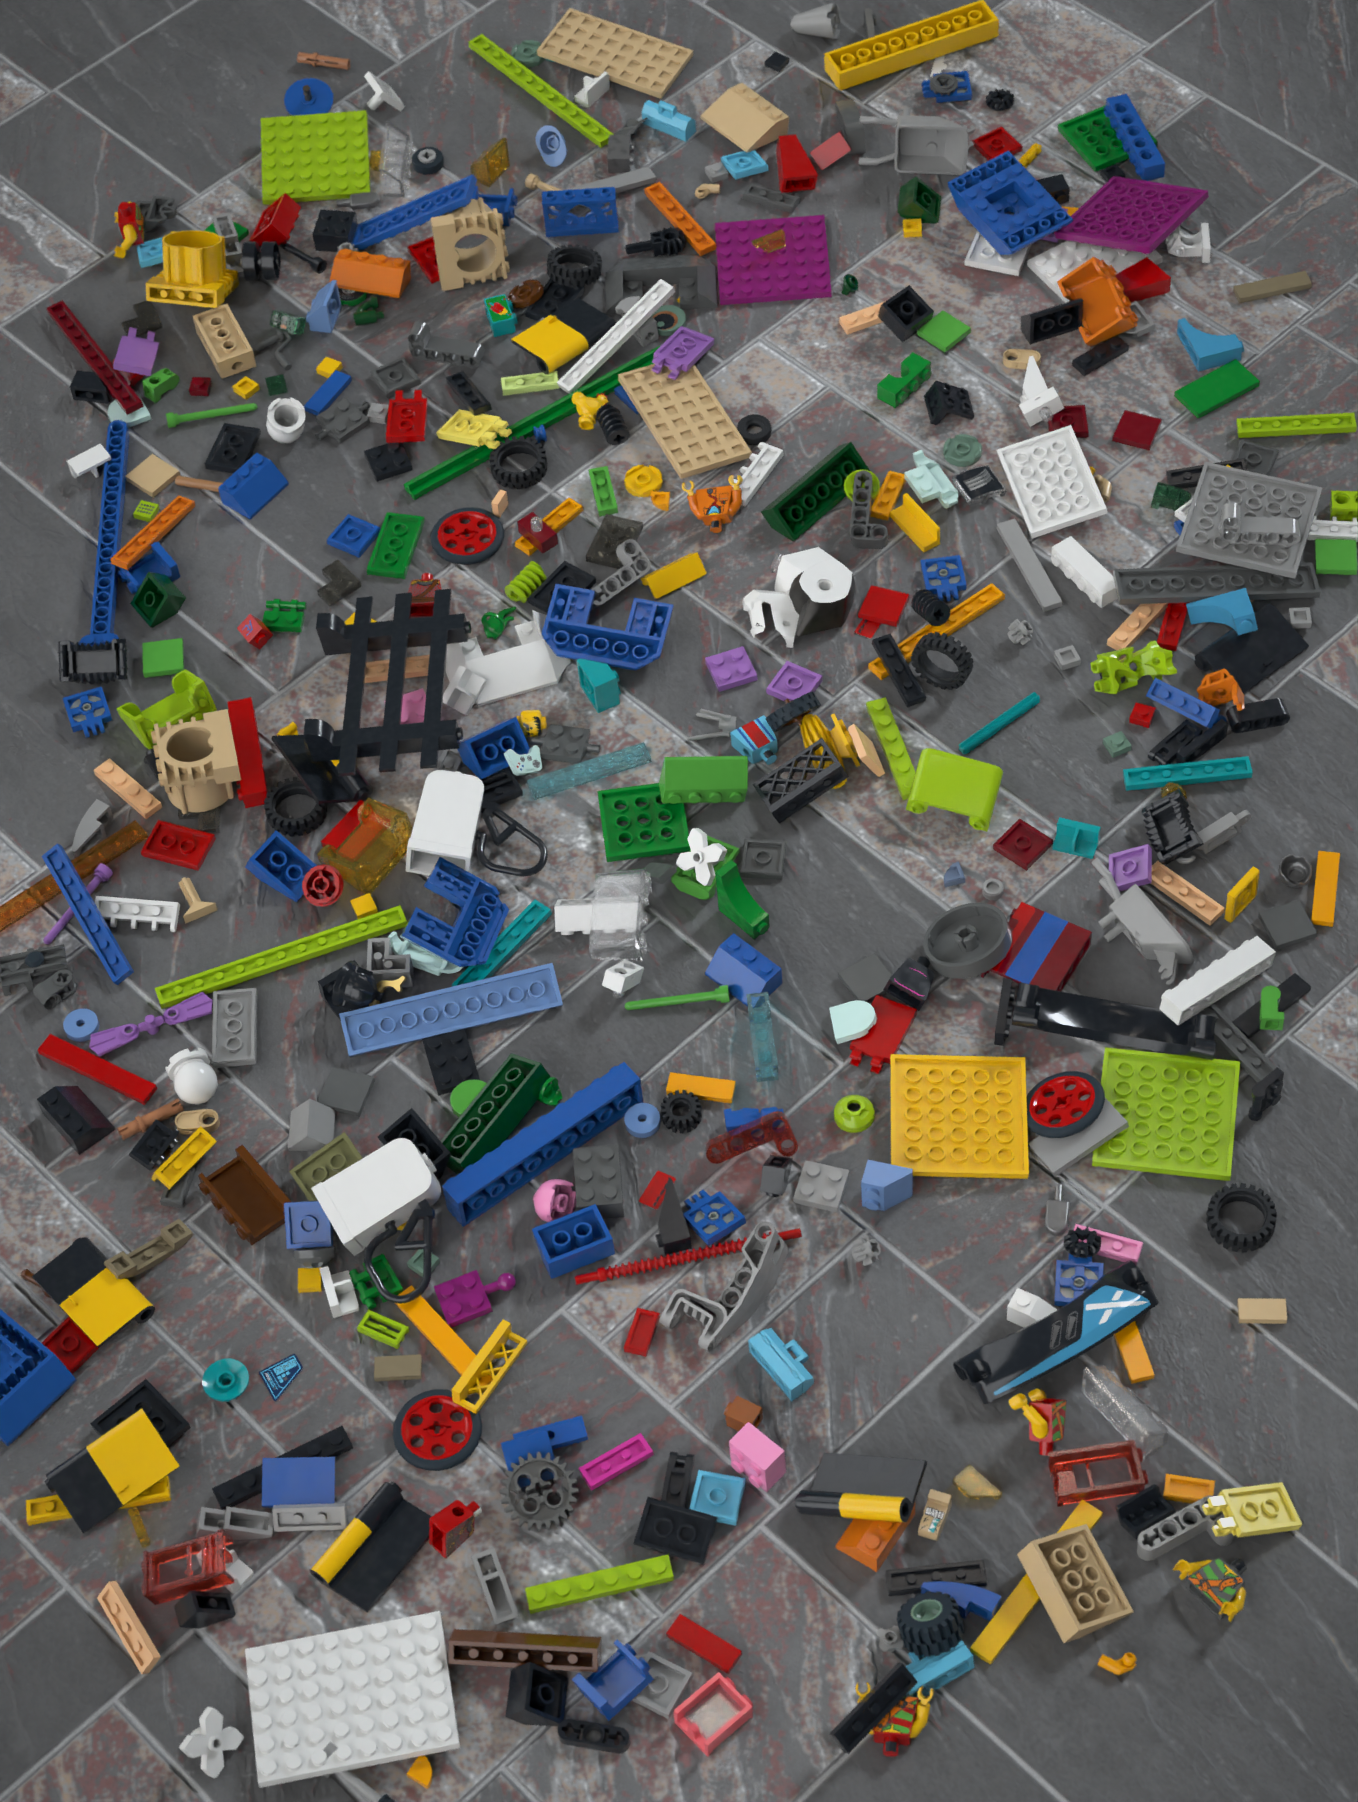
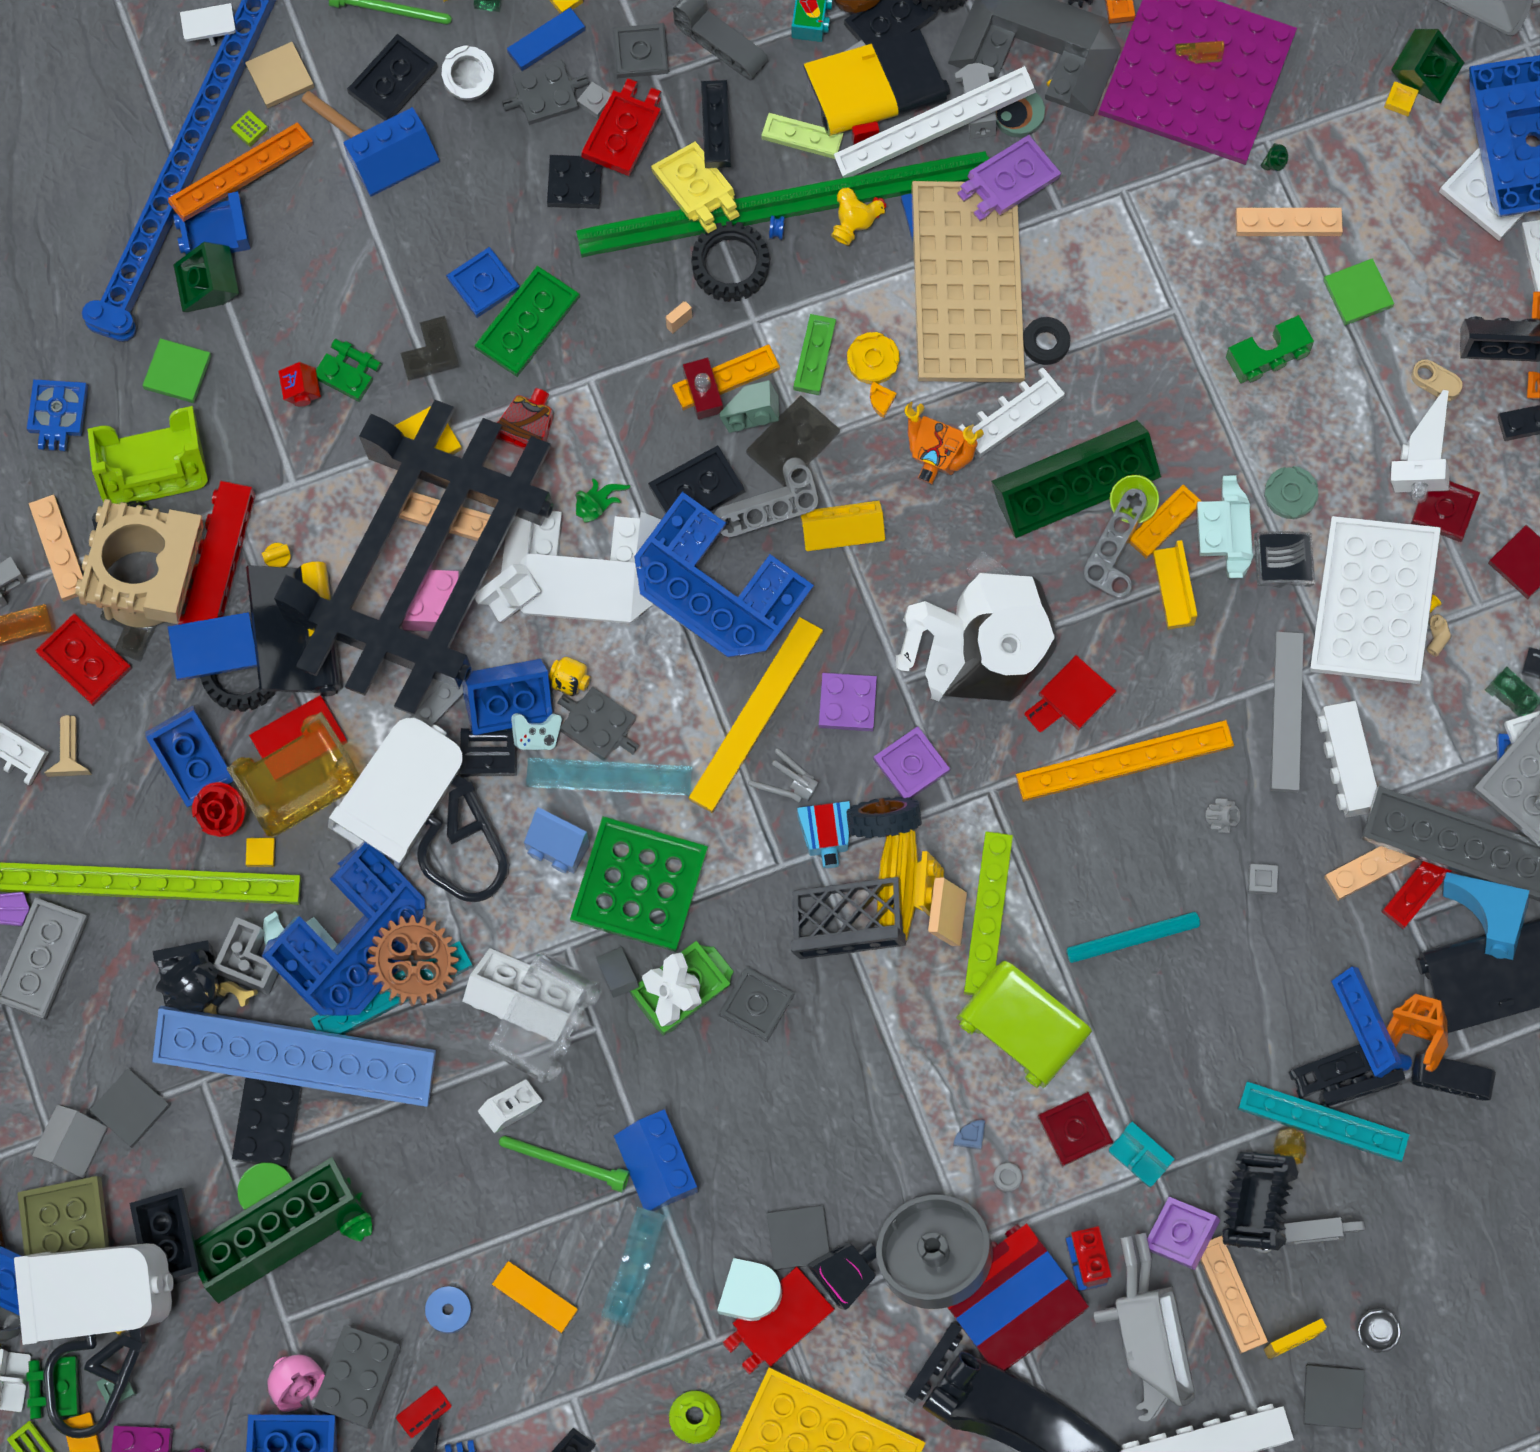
camera: 20 degrees right, 20 degrees up
(92, 662) = (86, 346): black piece -> none
(270, 793) = (212, 646): none -> blue tile
(482, 551) = (629, 378): wedge -> none
(508, 917) = (413, 986): none -> nougat gear
(525, 583) = (656, 458): lime piece -> none
(542, 1144) = (314, 1299): blue brick -> none
(570, 361) = (864, 131): none -> red tile
(573, 813) = (556, 841): none -> medium blue slope
(576, 532) = (751, 407): none -> sand green slope
(599, 684) = (674, 665): teal slope -> none
(612, 424) = (870, 257): black piece -> none
(672, 698) = (755, 715): none -> yellow tile
(681, 1122) = (489, 1305): black tyre -> none
(704, 779) = (730, 870): bright green slope -> none
(737, 902) = (694, 1070): green arch -> none
(737, 1118) = (570, 1375): blue piece -> none
(749, 1141) = (557, 1404): clear red beam -> none
(898, 670) = (1047, 802): black tile -> none
(905, 313) = (1319, 247): black brick -> none
(930, 607) = (1128, 730): black piece -> none
(944, 576) = (1171, 684): blue piece -> none
(947, 398) = (1308, 410): black bracket -> none
(948, 647) = (1099, 826): black tyre -> none
(1075, 902) = (1089, 1252): none -> red hips
(1112, 666) = (1310, 927): lime hips -> none
(1117, 744) = (1260, 1035): sand green plate -> none
(1142, 715) = (1313, 1006): red plate -> none
(1325, 888) = (1406, 1367): light orange tile -> none

